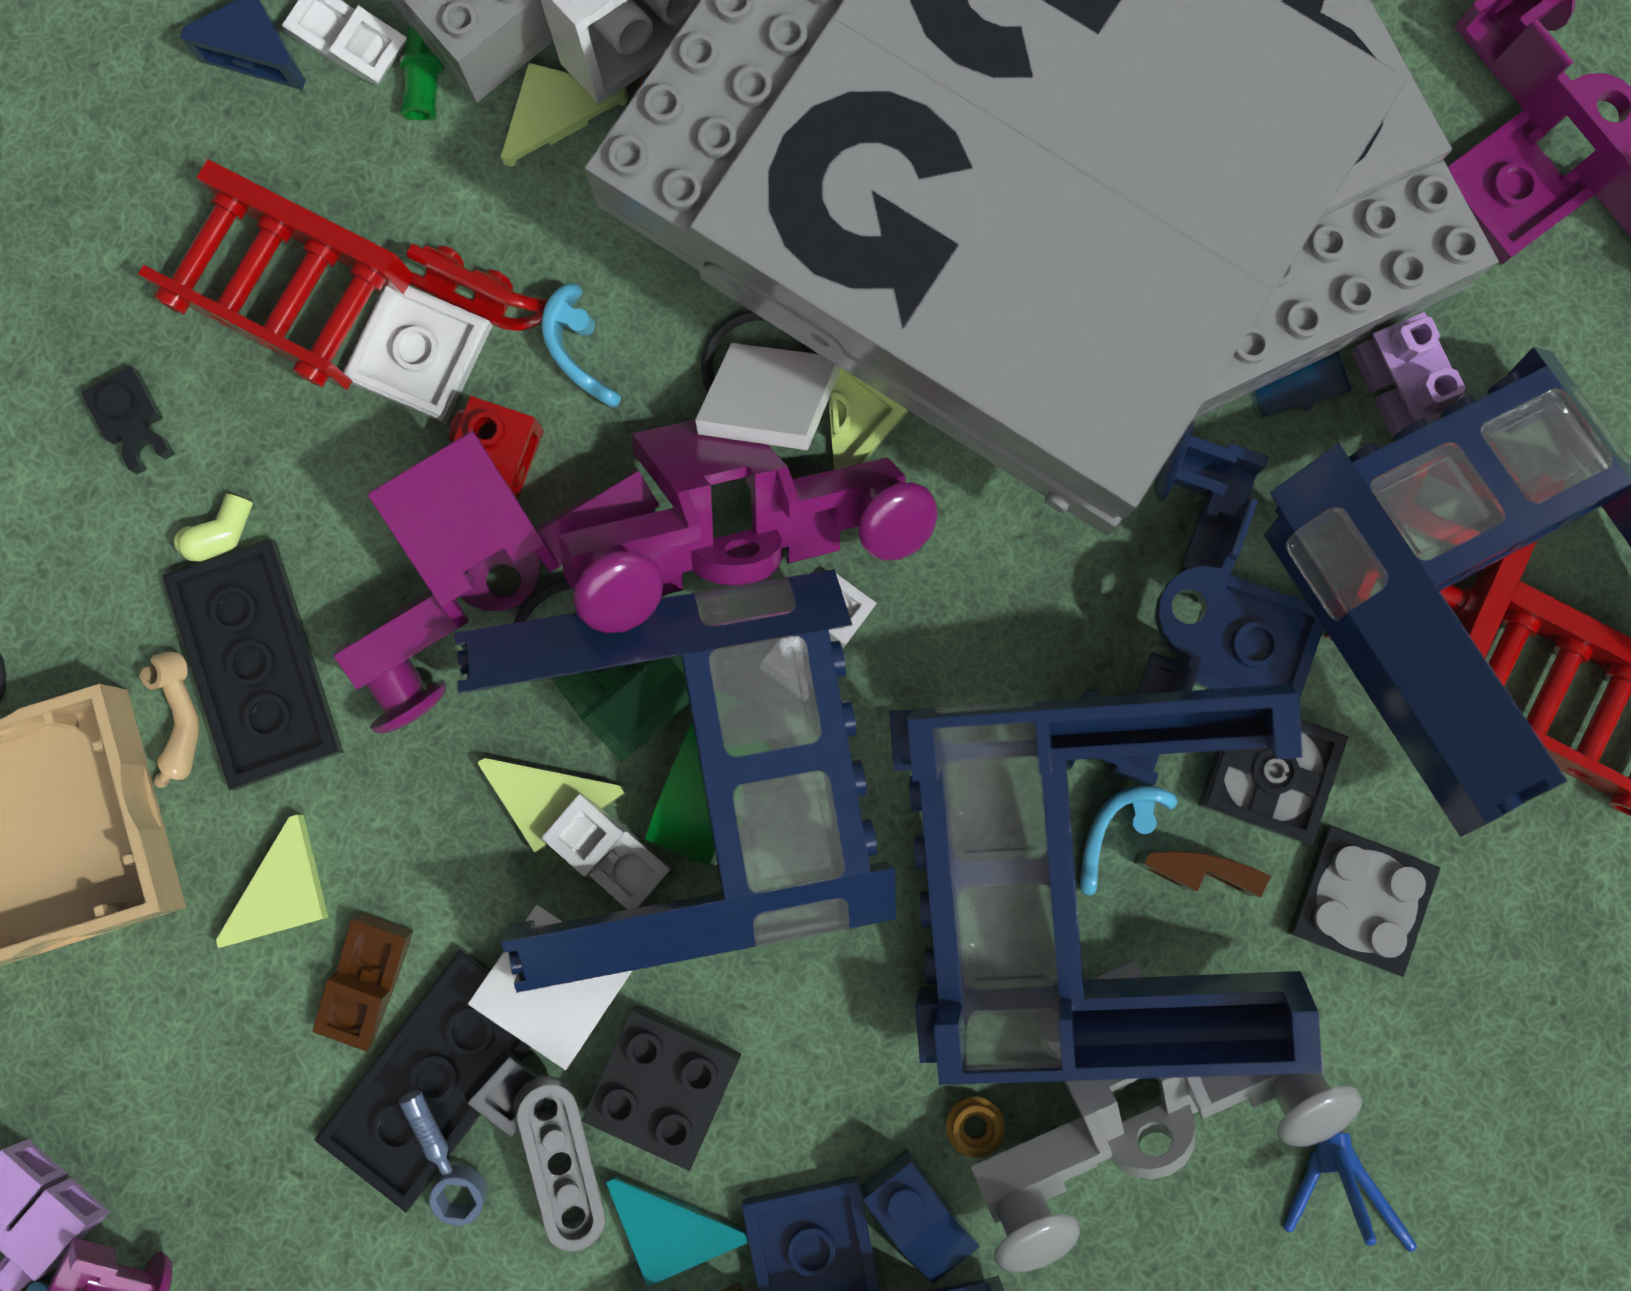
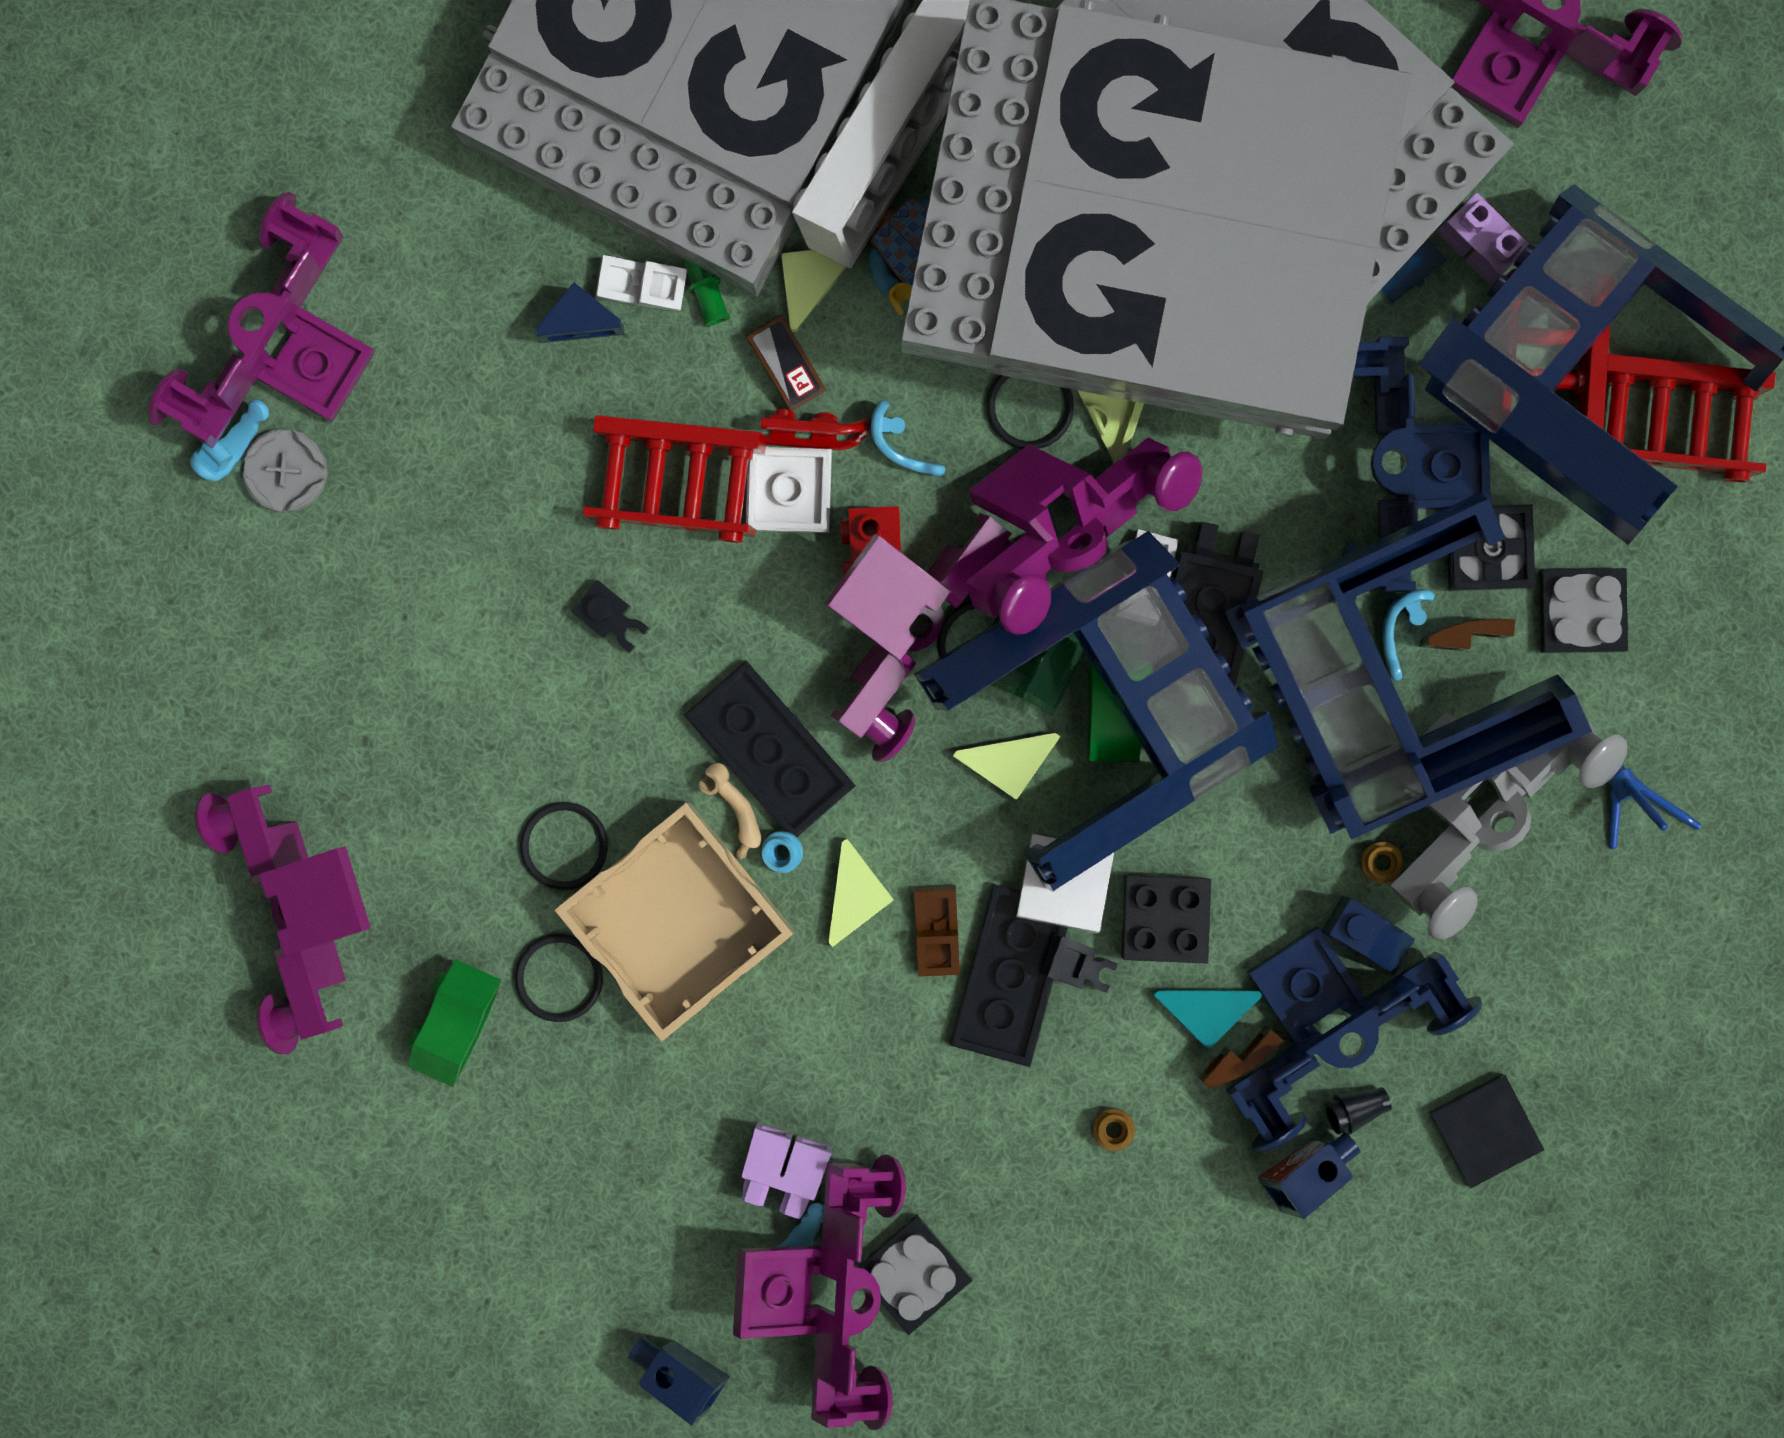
camera: 20 degrees left, 5 degrees up
(195, 803) = (774, 859): none -> medium azure plate
(216, 536) = (707, 674): yellowish green arm -> none
(435, 1150) = (1035, 1018): sand blue piece -> none
(478, 195) = (786, 362): none -> slope
(562, 1184) = (1133, 999): plate -> none
(607, 852) = (1066, 781): white slope -> none
(768, 396) = (1050, 428): white tile -> none
(896, 673) = (1218, 584): none -> black tile

